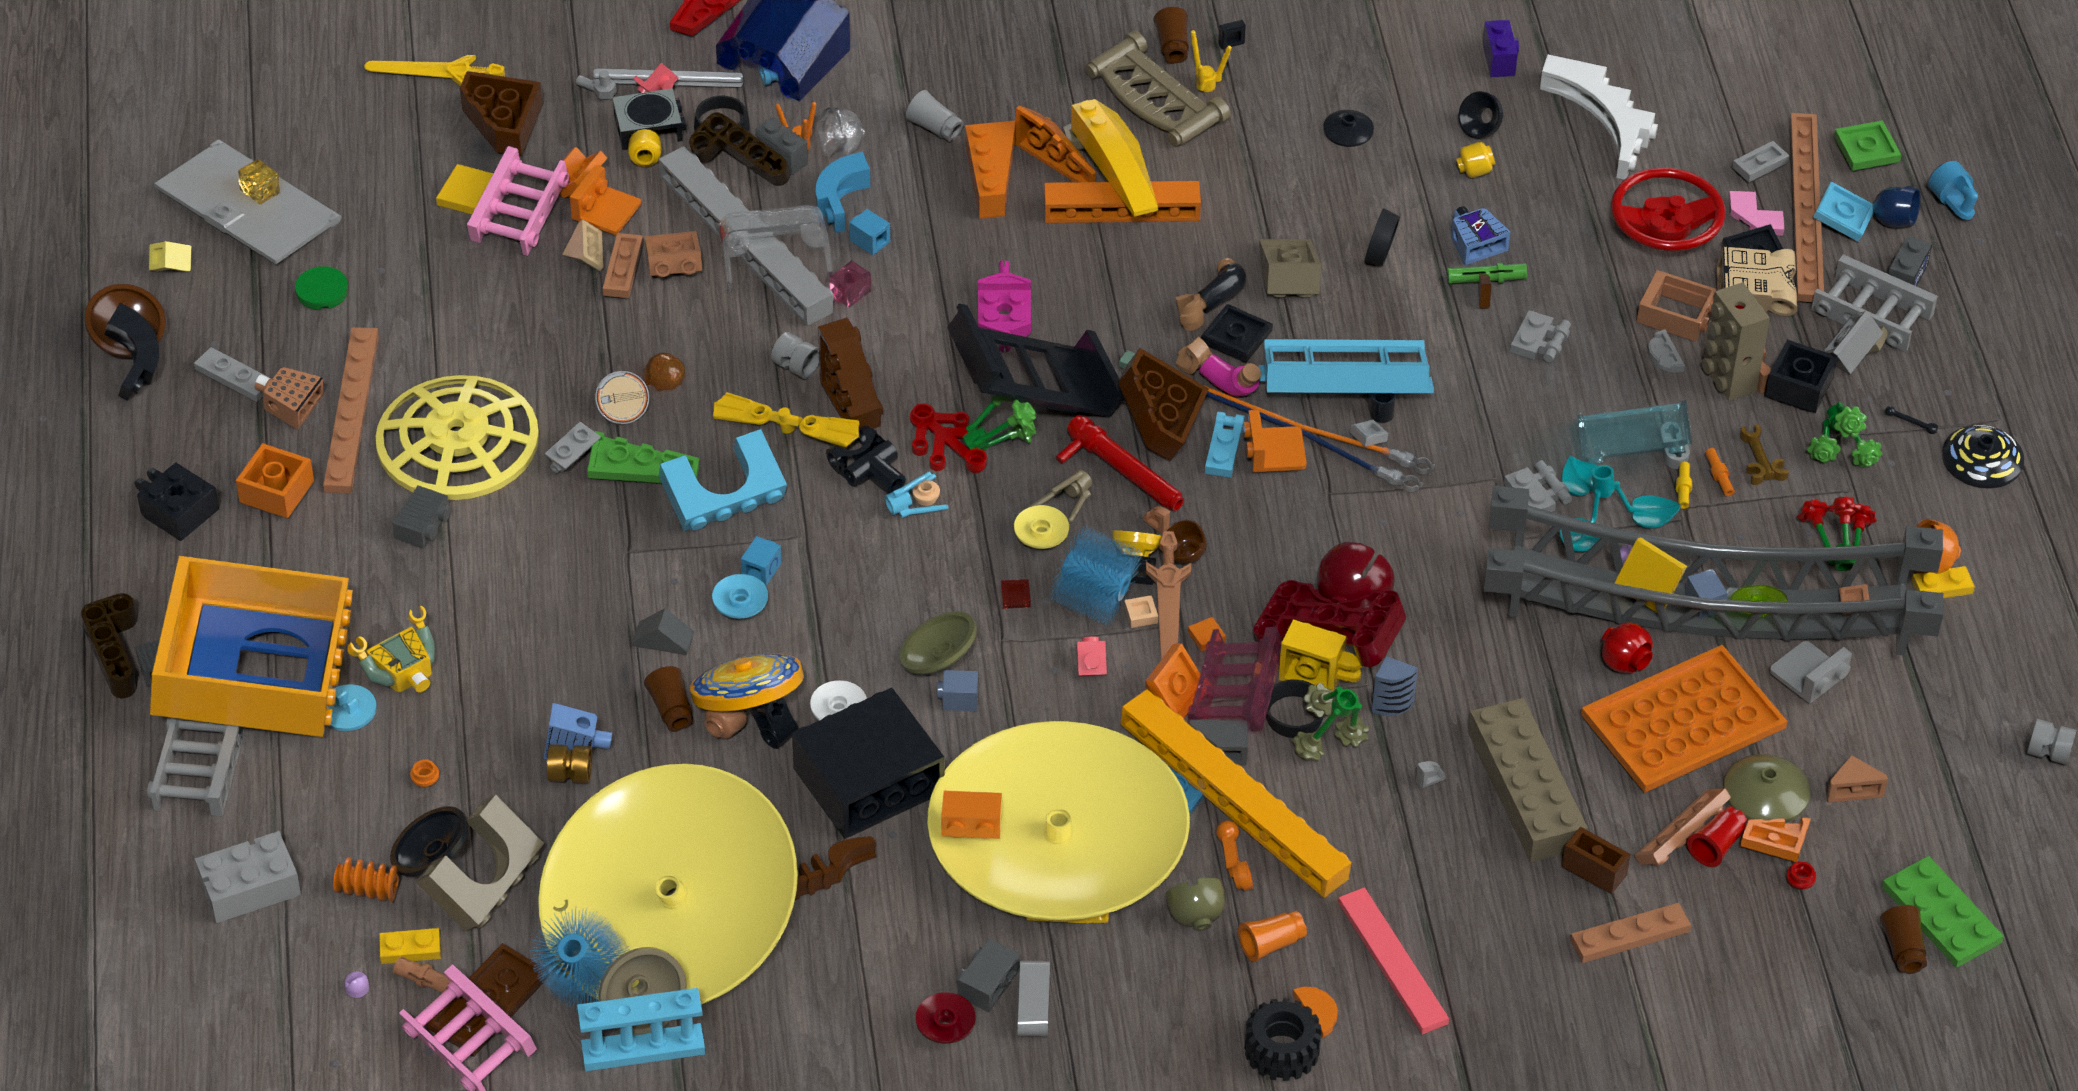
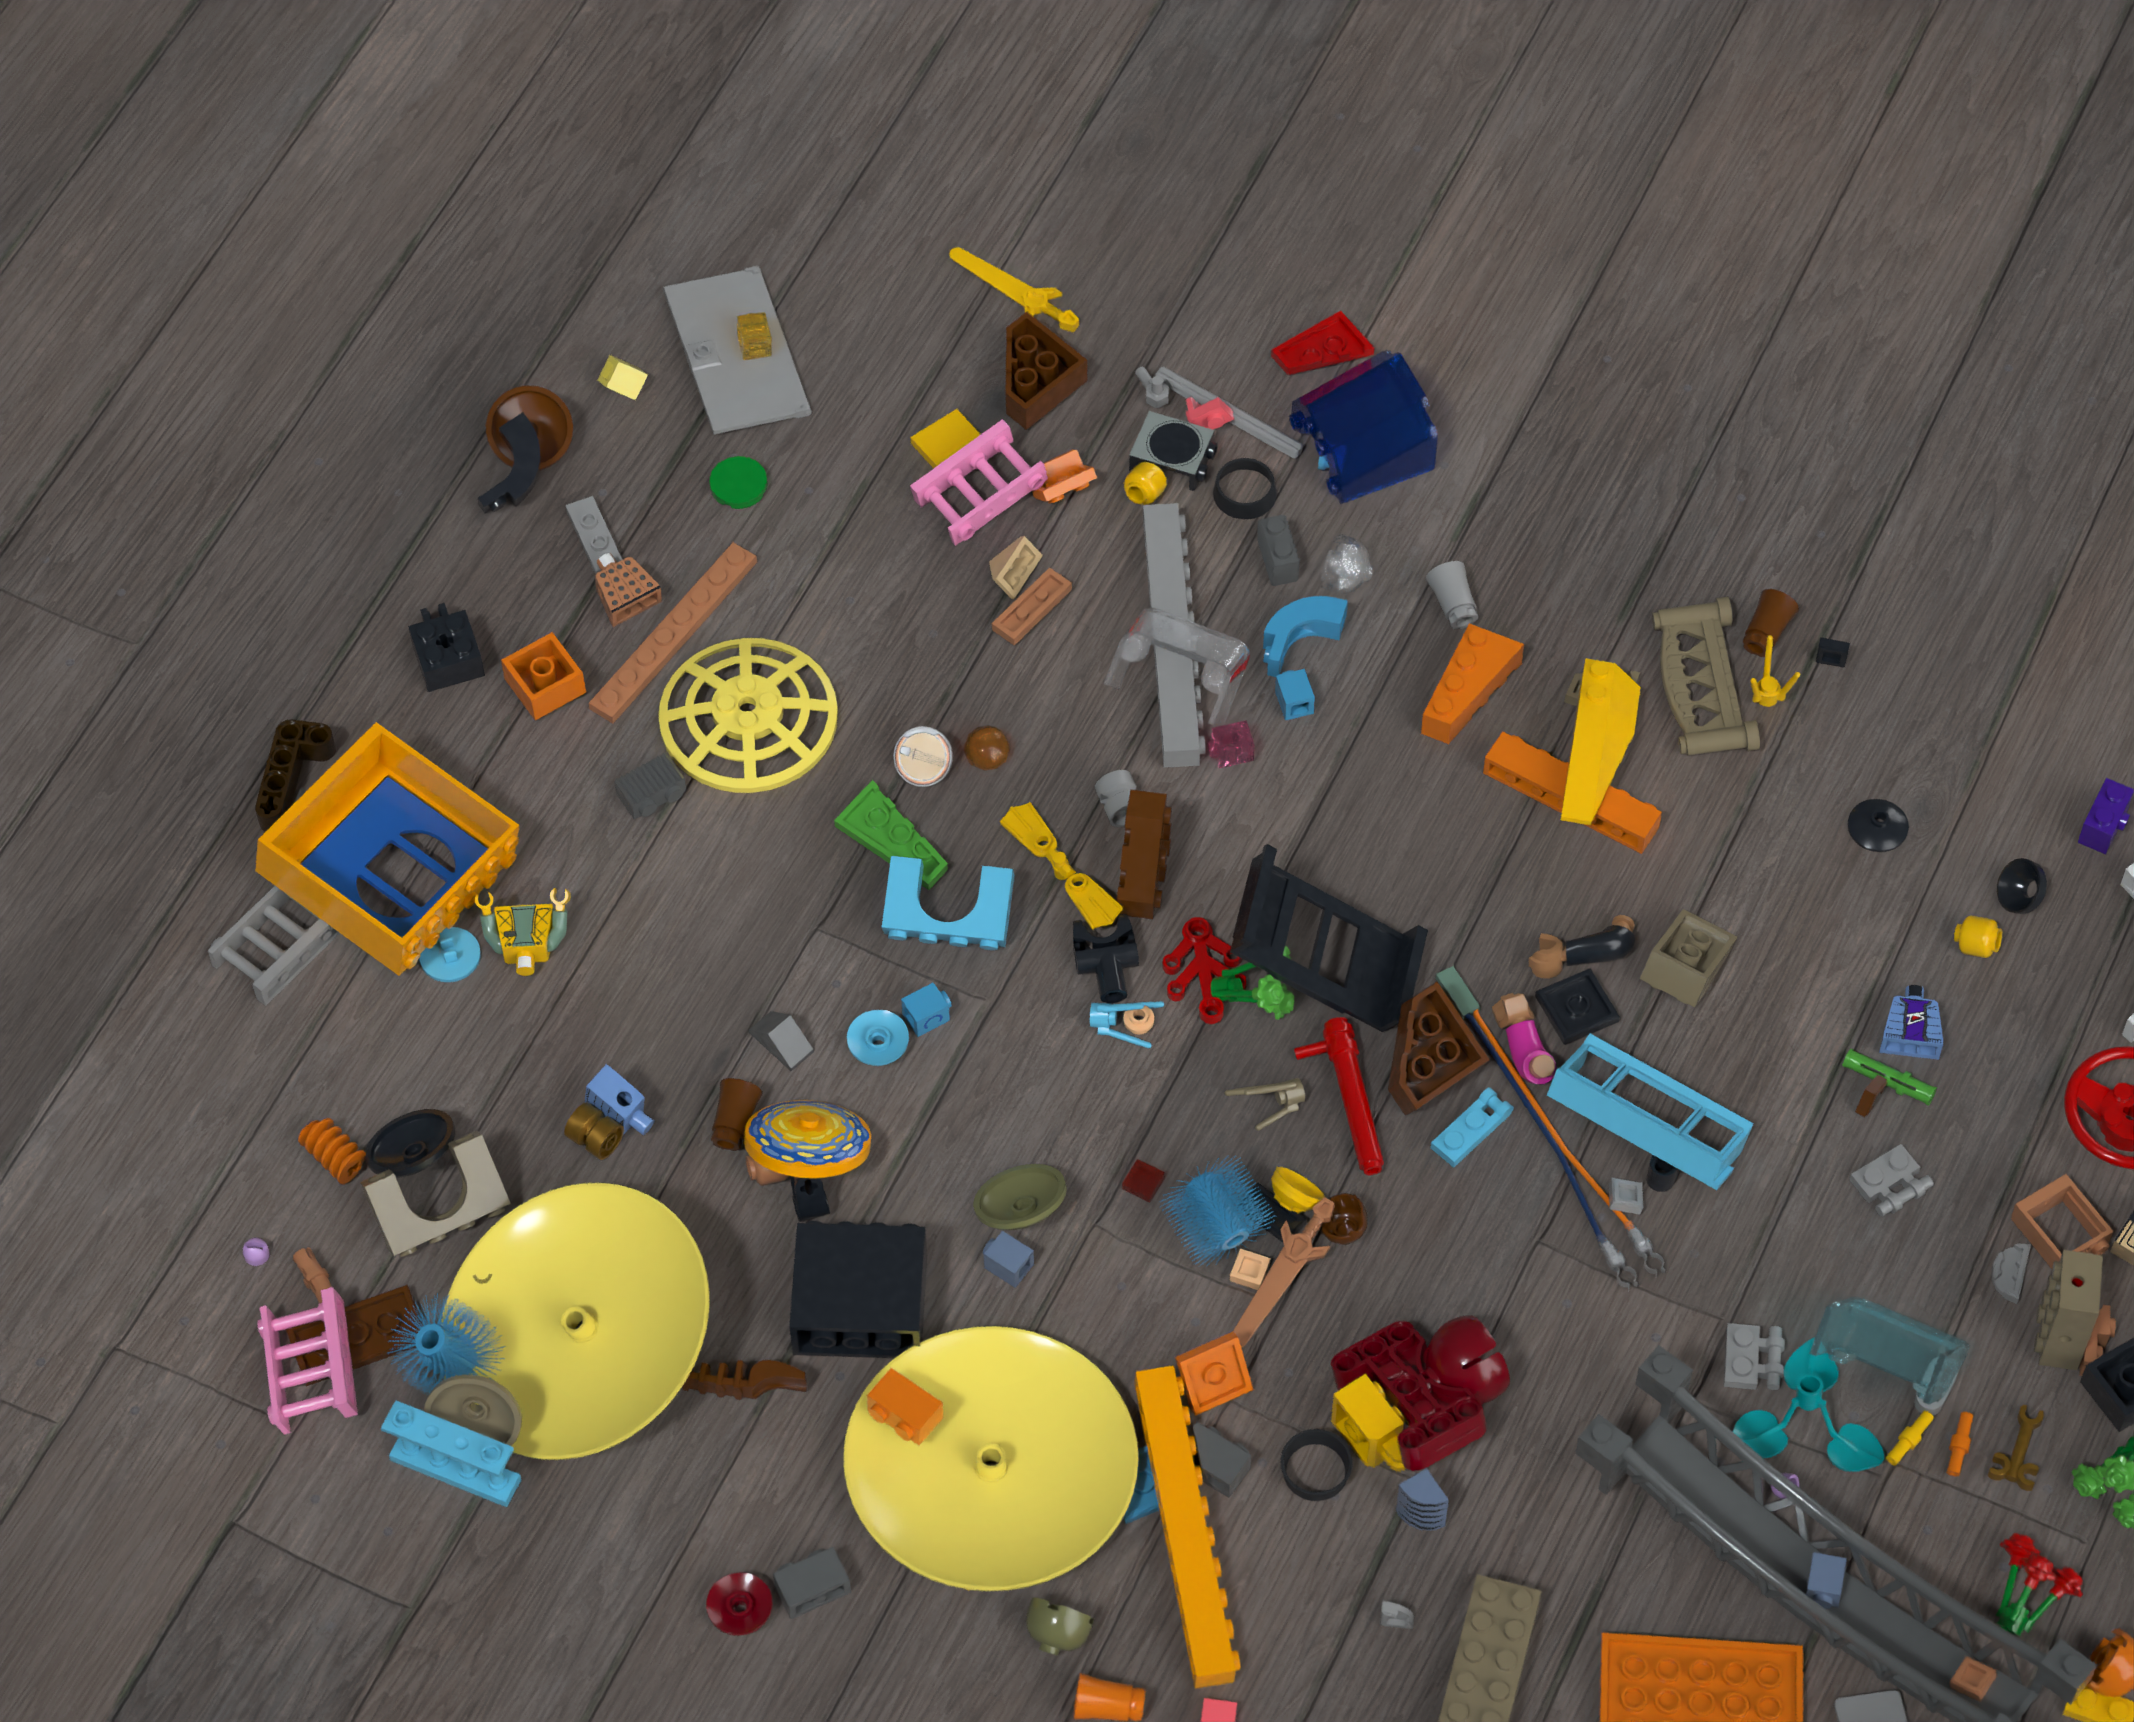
camera: 35 degrees right, 10 degrees up
(247, 877) = (235, 1086): light grey piece -> none
(411, 944) = (328, 1238): yellow plate -> none
(424, 773) = (461, 1058): orange plate -> none
(571, 447) = (837, 785): light grey hinge -> none
(602, 205) = (1060, 526): orange bracket -> none
(673, 254) = (1086, 618): nougat plate -> none
(743, 152) = (1234, 539): dark brown beam -> none
(806, 129) = (1306, 545): orange plant -> none
(835, 697) = (885, 1195): white dish -> none
(1005, 293) = (1368, 832): dark pink plate -> none
(1033, 998) = (835, 1632): light grey beam -> none
(1041, 527) = (1220, 1110): light yellow dish -> none
(1047, 143) = (1545, 679): orange wedge -> none
(1091, 657) = (1161, 1293): coral bracket -> none
(1158, 518) = (1340, 1176): nougat tile -> none
(1202, 632) = (1295, 1331): orange tile -> none
(1228, 833) = (1129, 1615): orange piece -> none
(1258, 690) = (1283, 1428): clear pink fence -> none
(1273, 447) = (1515, 1157): orange bracket -> none
(1343, 703) = (1336, 1479): olive plant -> none
(1382, 237) = (1801, 979): black tyre -> none
(1627, 648) = (1697, 1594): red plant -> none
(1651, 570) = (1773, 1528): yellow tile -> none
(1759, 593) = (1874, 1618): clear neon green dish -> none

